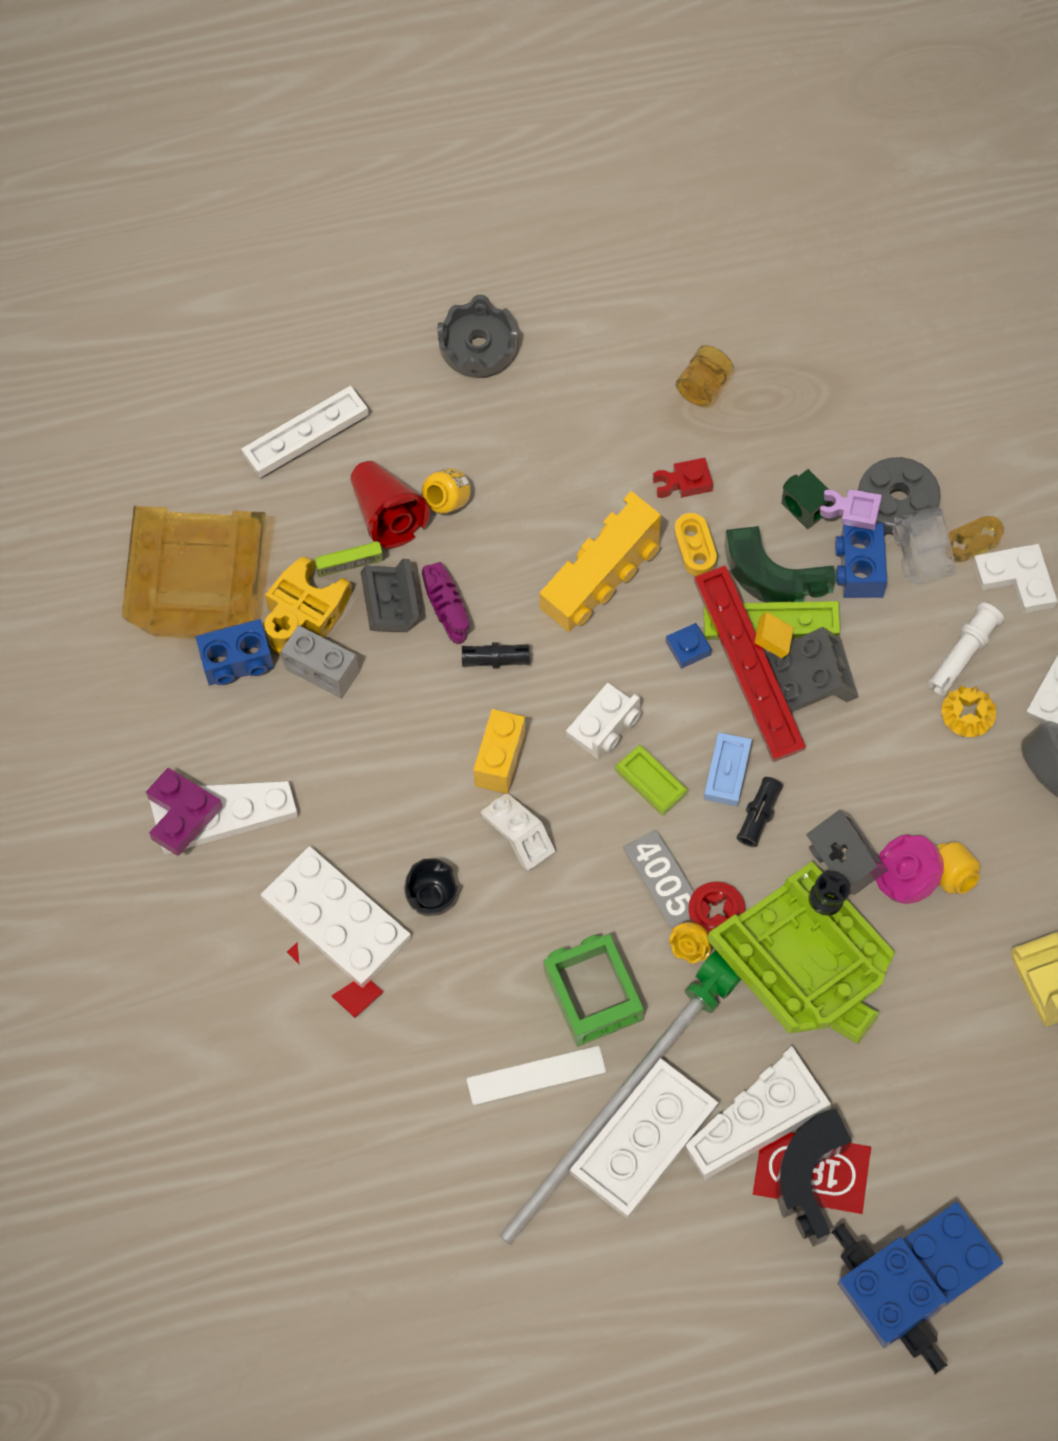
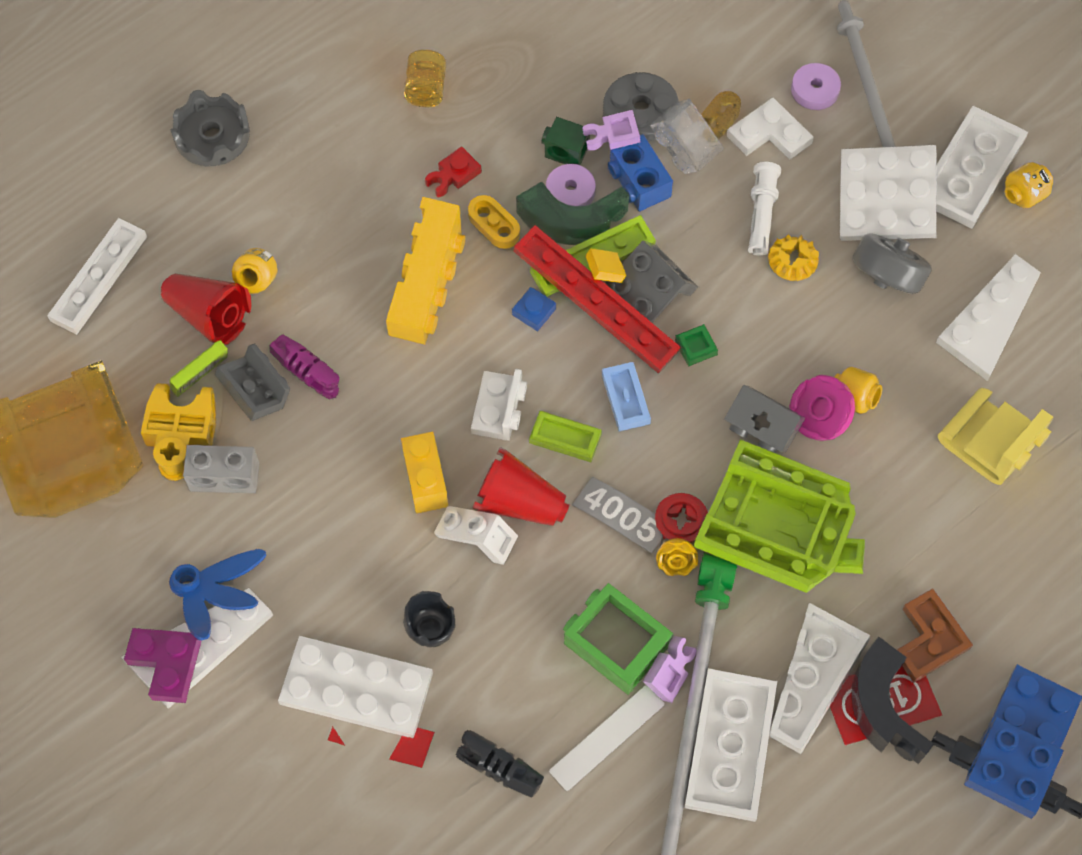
camera: 30 degrees left, 0 degrees up
(233, 644) = (131, 491): blue brick -> none
(250, 762) = (205, 587): none -> blue plant
(423, 1049) = (498, 764): none -> black hinge
(495, 655) = (373, 392): black pin -> none
(575, 811) = (520, 493): none -> red cone
(621, 1043) = (667, 671): none -> lavender plate
(750, 829) = (671, 401): black pin -> none
(793, 532) = (574, 176): none -> lavender piece
(824, 752) = (696, 345): none -> green tile
(831, 884) = (769, 450): black wheel -> none
(898, 1142) = (939, 638): none -> dark orange plate

